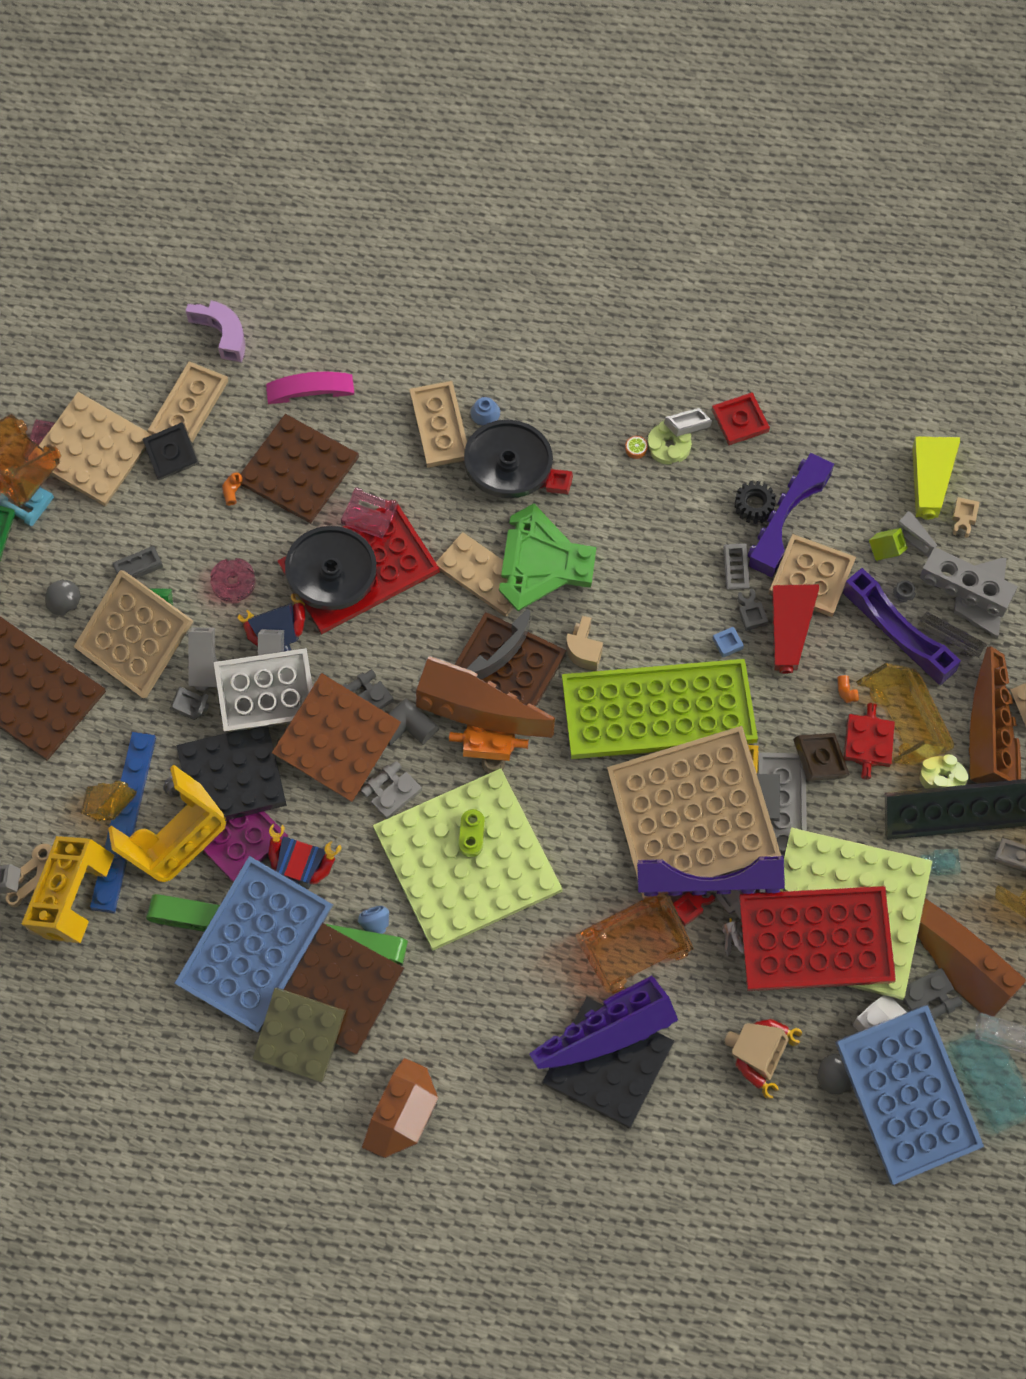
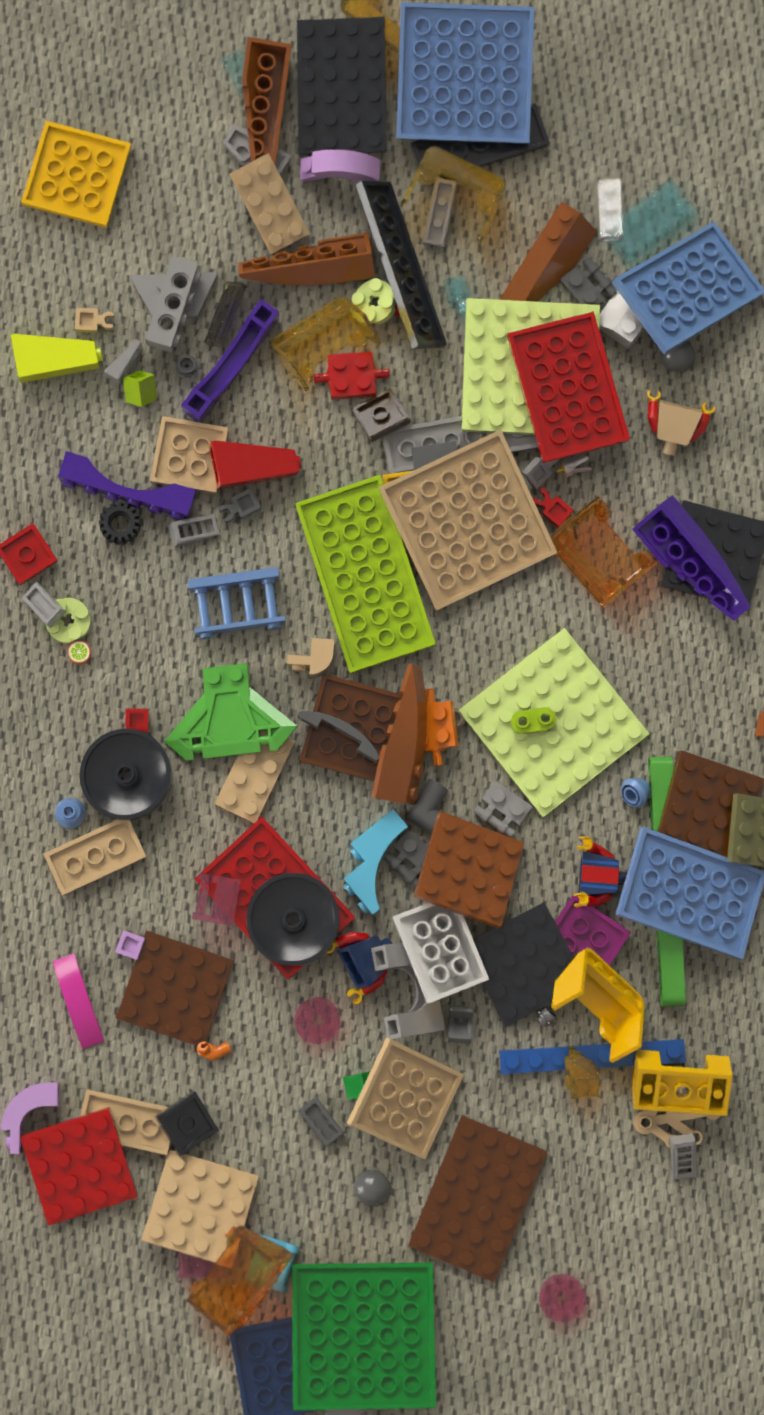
camera: 110 degrees left, 15 degrees up
(160, 358) = (78, 1166): none -> red plate
(348, 436) = (130, 945): none -> lavender plate
(381, 657) = (370, 848): none -> medium azure arch
(674, 579) = (245, 581): none -> medium blue fence
(728, 642) = (279, 522): medium blue plate -> none
(762, 873) = (524, 446): dark purple arch -> none
(844, 690) = (307, 405): orange arm -> none

